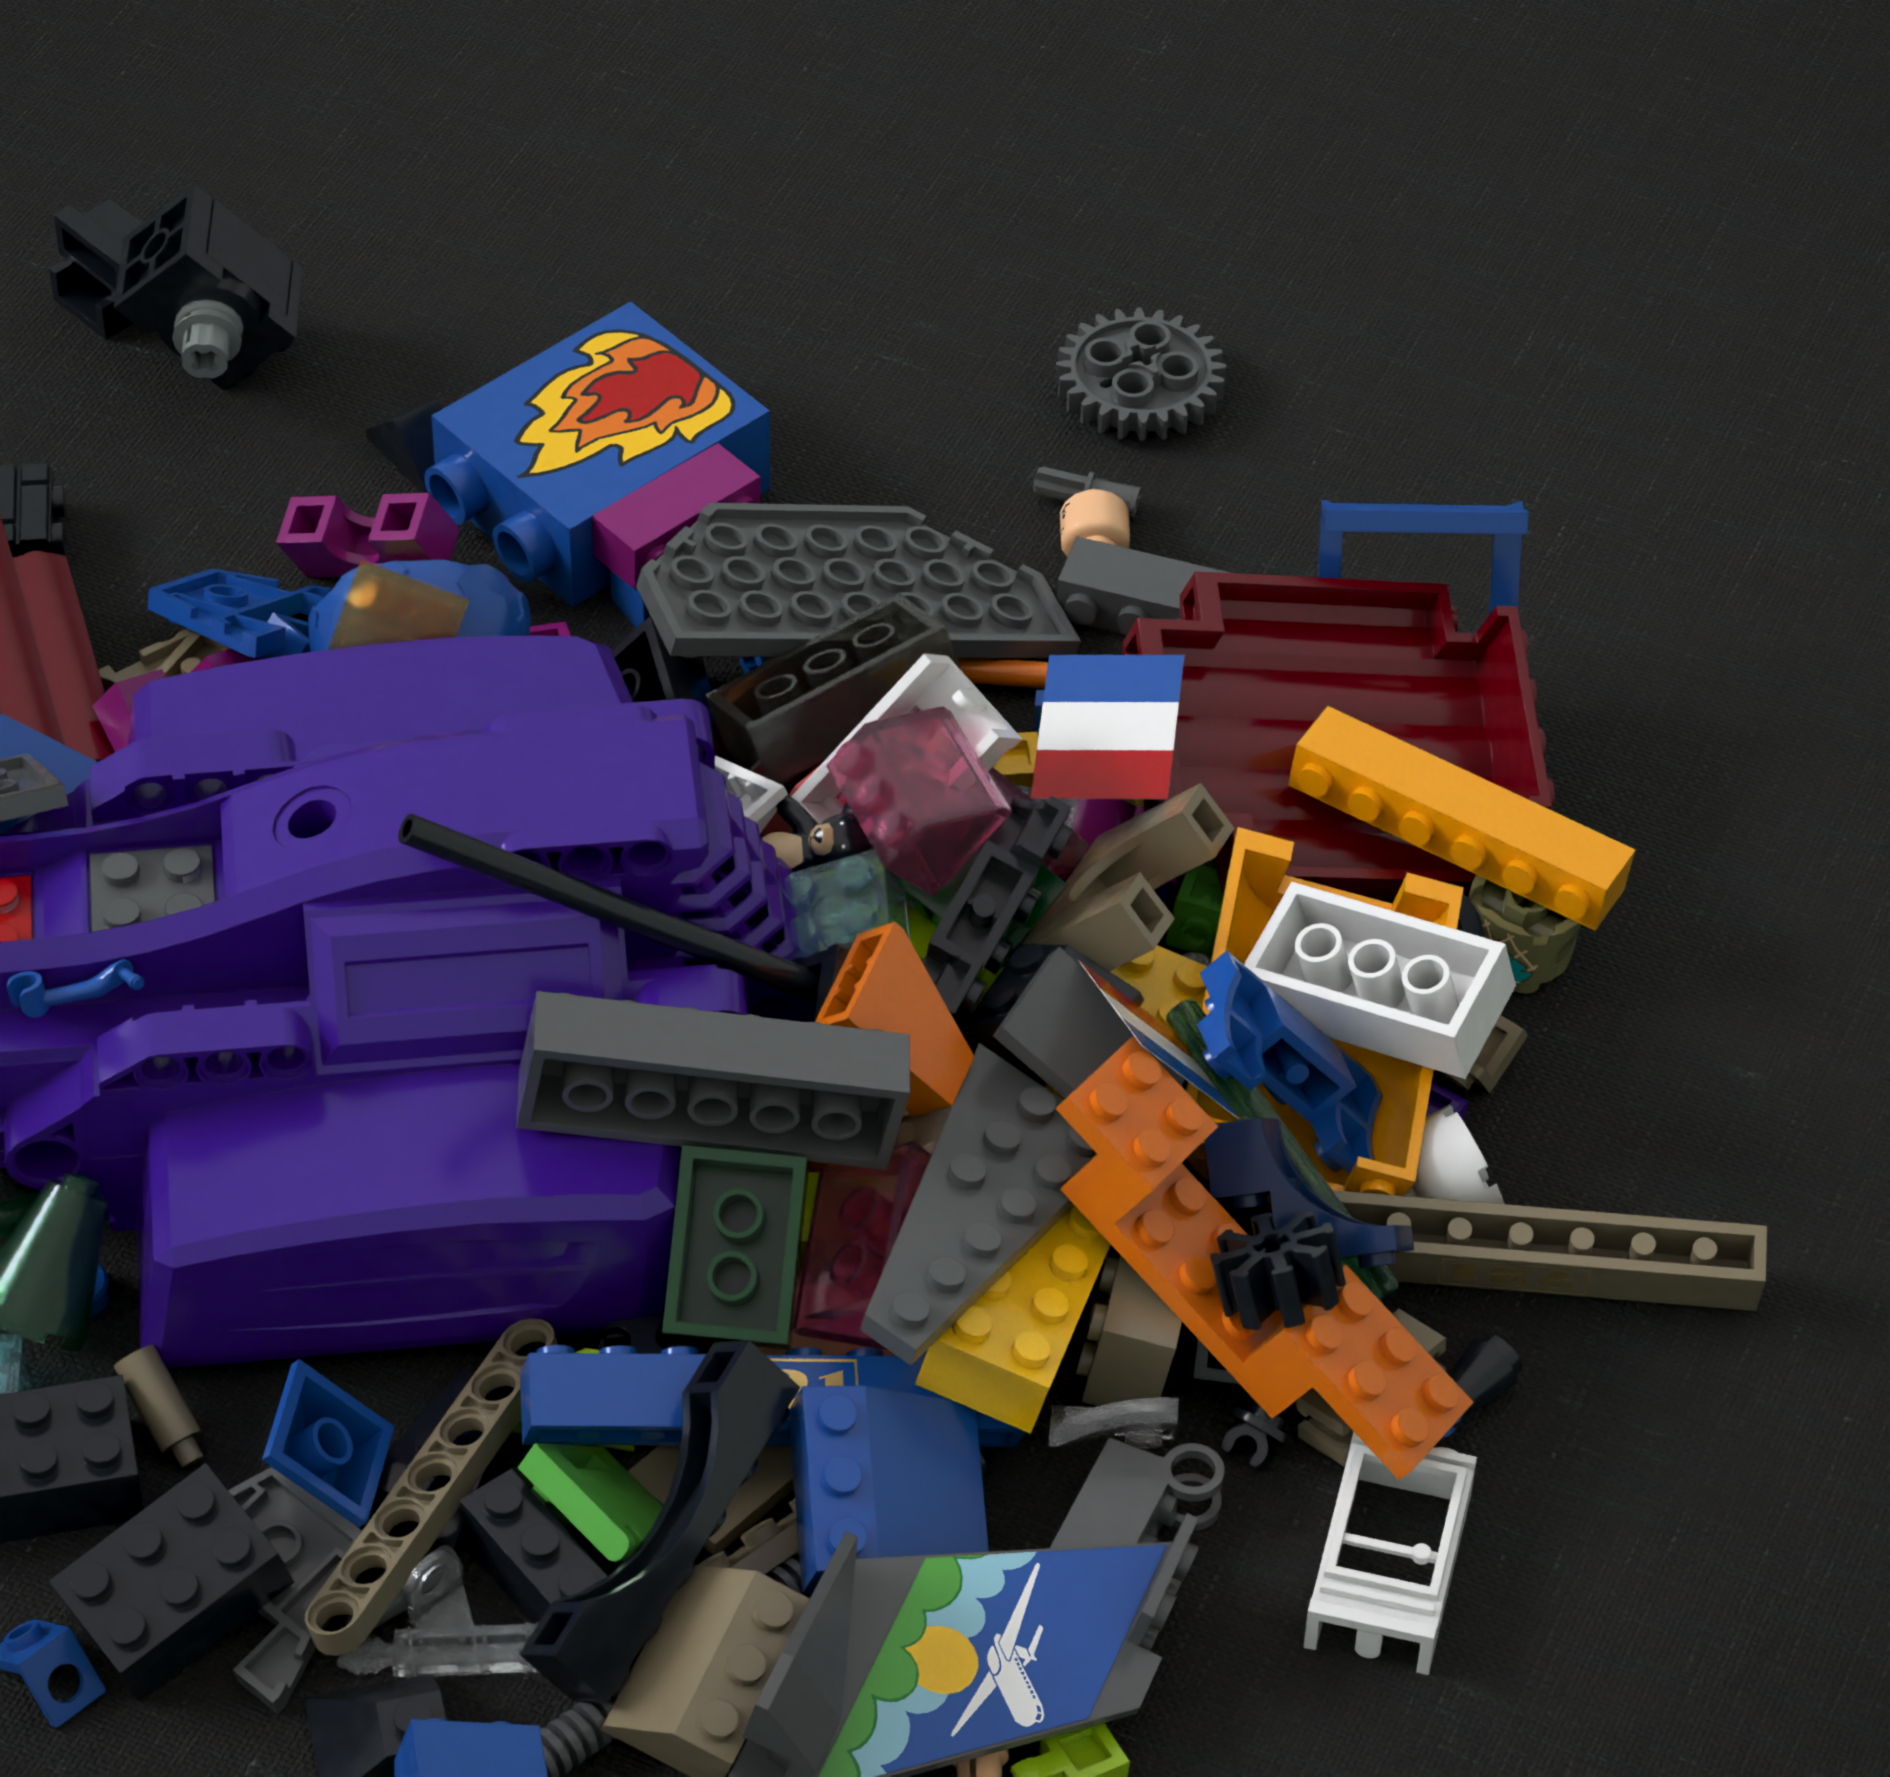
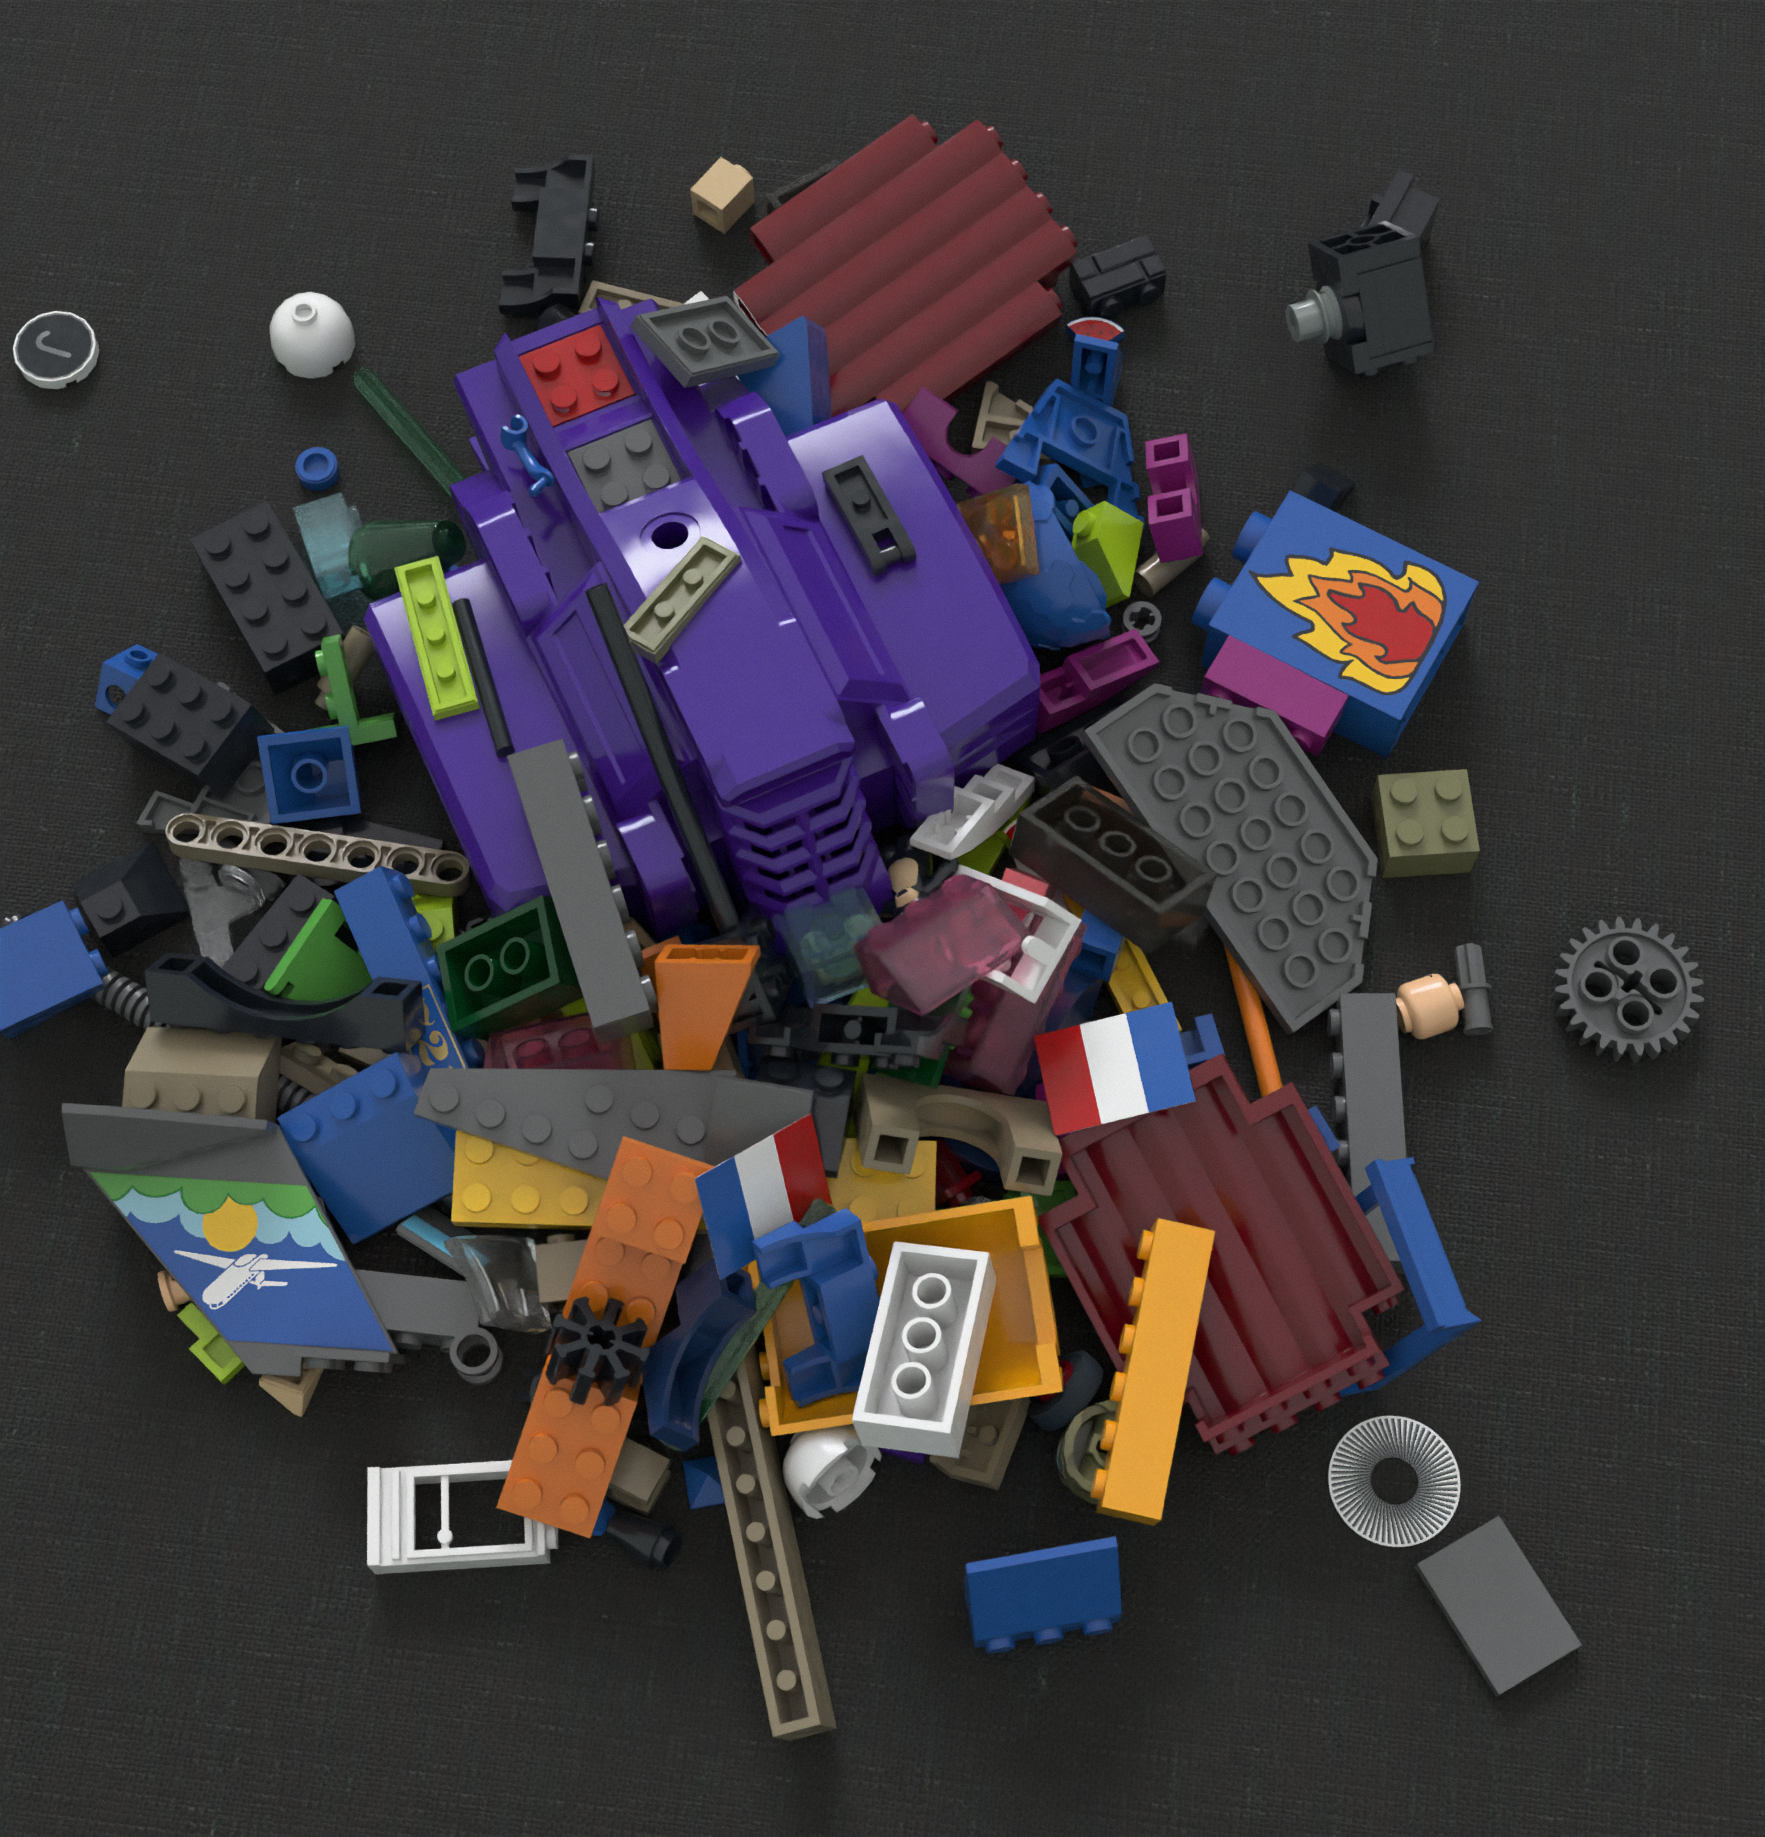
camera: 75 degrees right, 20 degrees up
(87, 567) = (1096, 328): none -> red tile
(155, 549) = (1096, 367): none -> blue slope
(215, 1402) = (342, 700): none -> bright green bracket
(259, 1174) = (436, 638): none -> lime tile
(326, 710) = (868, 514): none -> black plate
(346, 1134) = (483, 677): none -> black bar
(398, 788) = (679, 598): none -> olive tile
(876, 457) = (1424, 823): none -> olive brick
(1036, 1485) = (429, 1230): none -> dark grey slope
(1166, 1698) = (291, 1390): none -> tan slope
(1427, 1303) = (703, 1483): none -> blue slope
(1664, 715) = (1369, 1515): none -> sticker
(1670, 1013) = (1043, 1594): none -> blue slope
(1780, 679) = (1497, 1606): none -> dark grey tile

